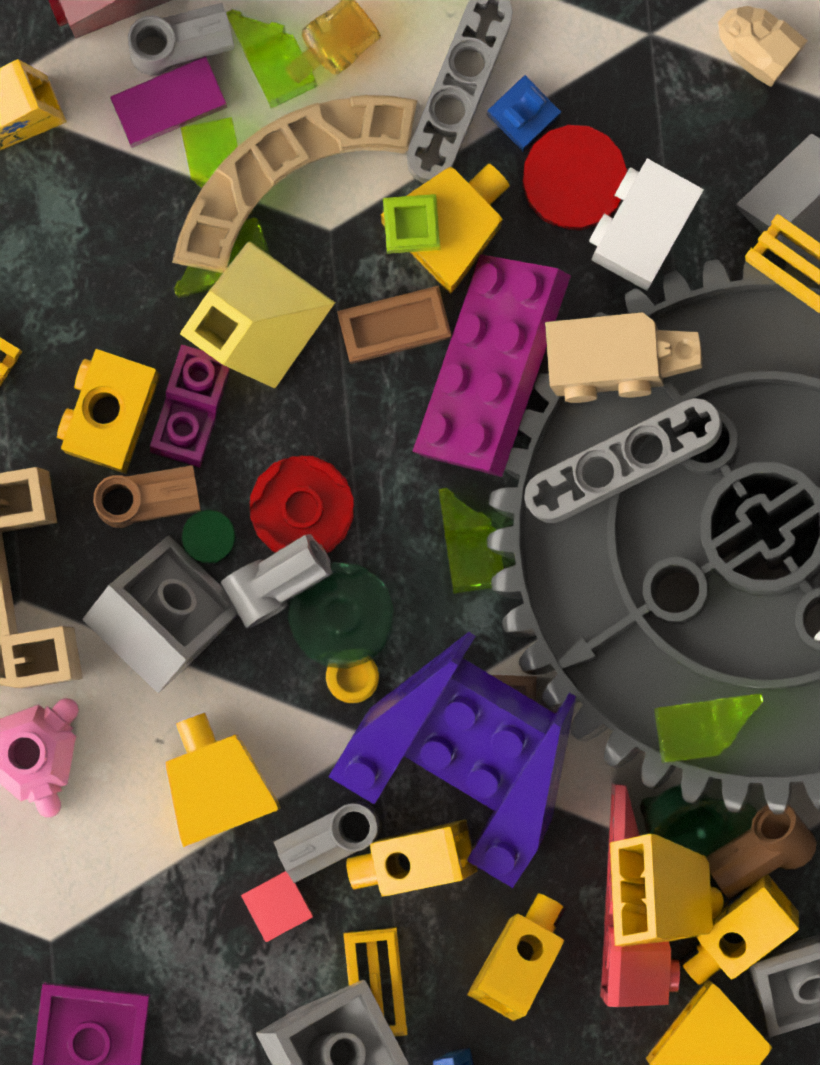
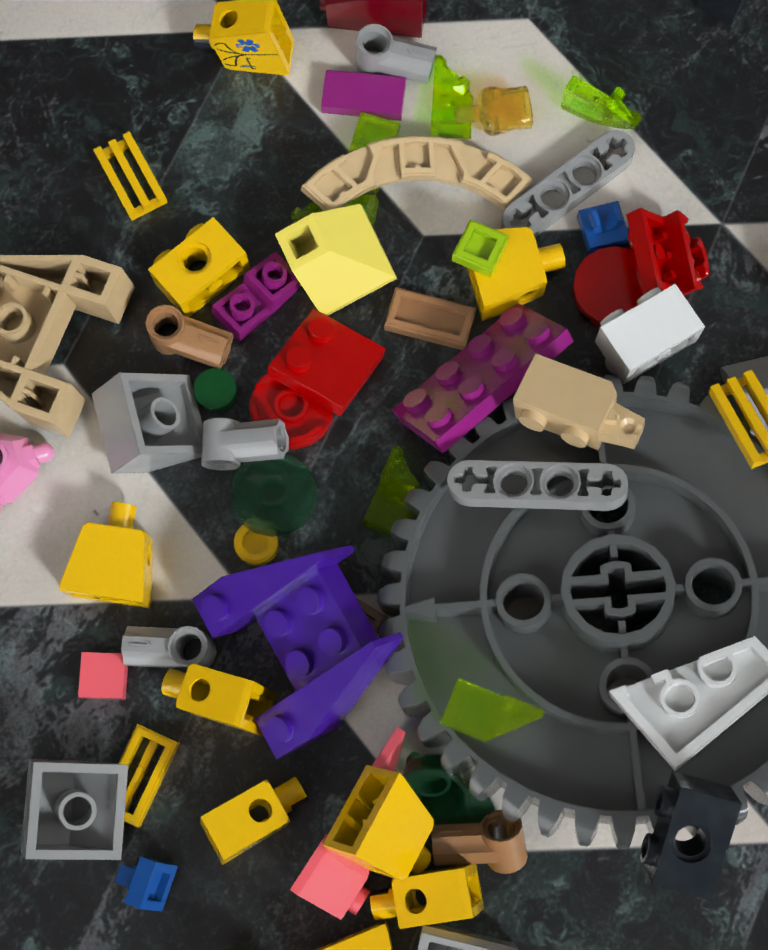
camera: 35 degrees right, 10 degrees down
(312, 439) = (326, 362): none -> red plate
(613, 113) = (666, 252): none -> red slope

